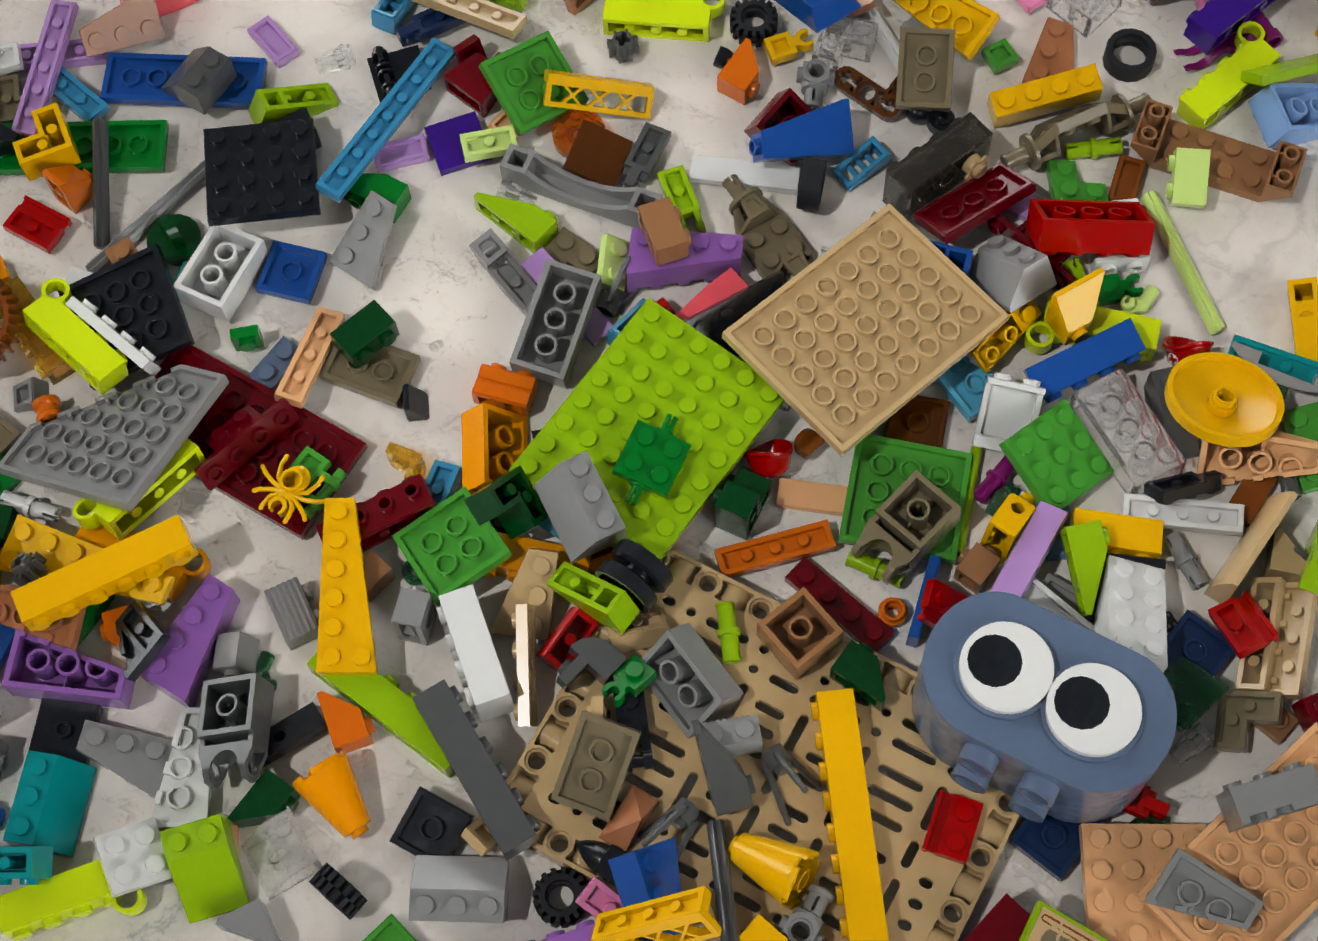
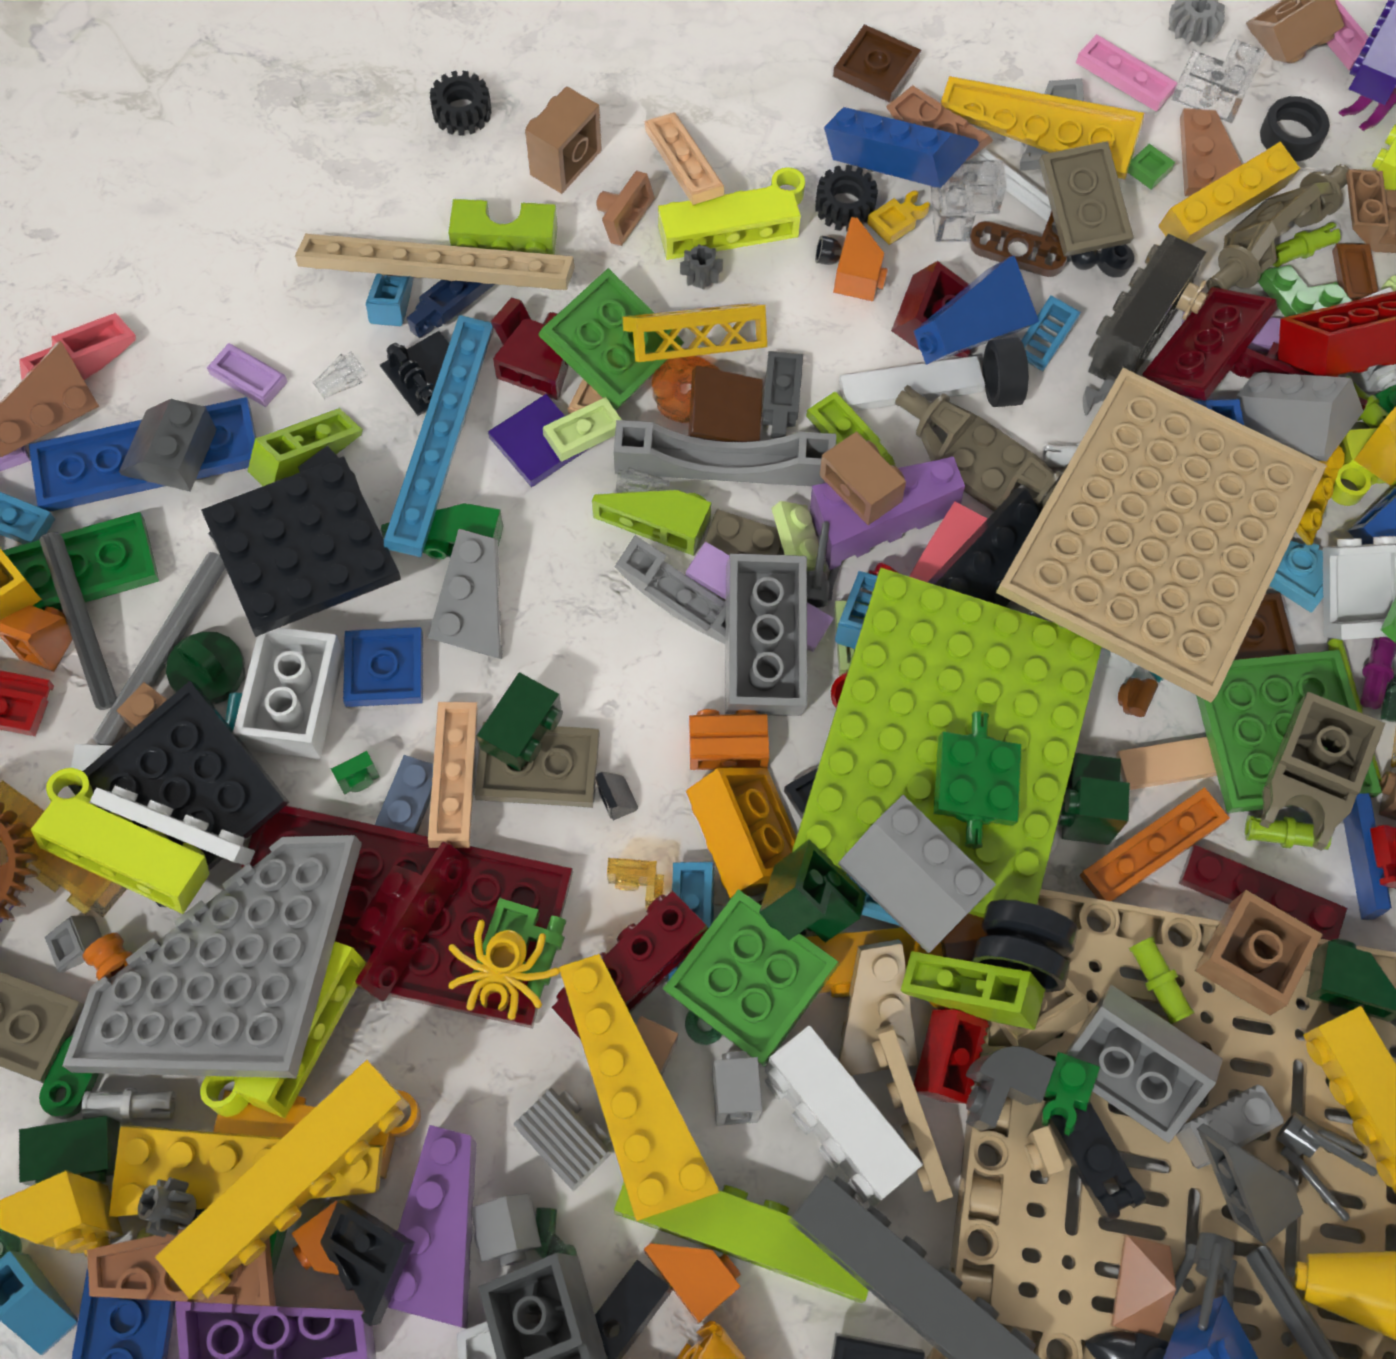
camera: 25 degrees left, 0 degrees up
(402, 153) = (473, 471): lavender tile -> none
(596, 765) = (1078, 1229): dark tan plate -> none
(770, 458) = (1105, 728): red helmet -> none
(815, 87) = (951, 246): light grey connector -> none
(896, 604) = (1340, 876): orange plate -> none

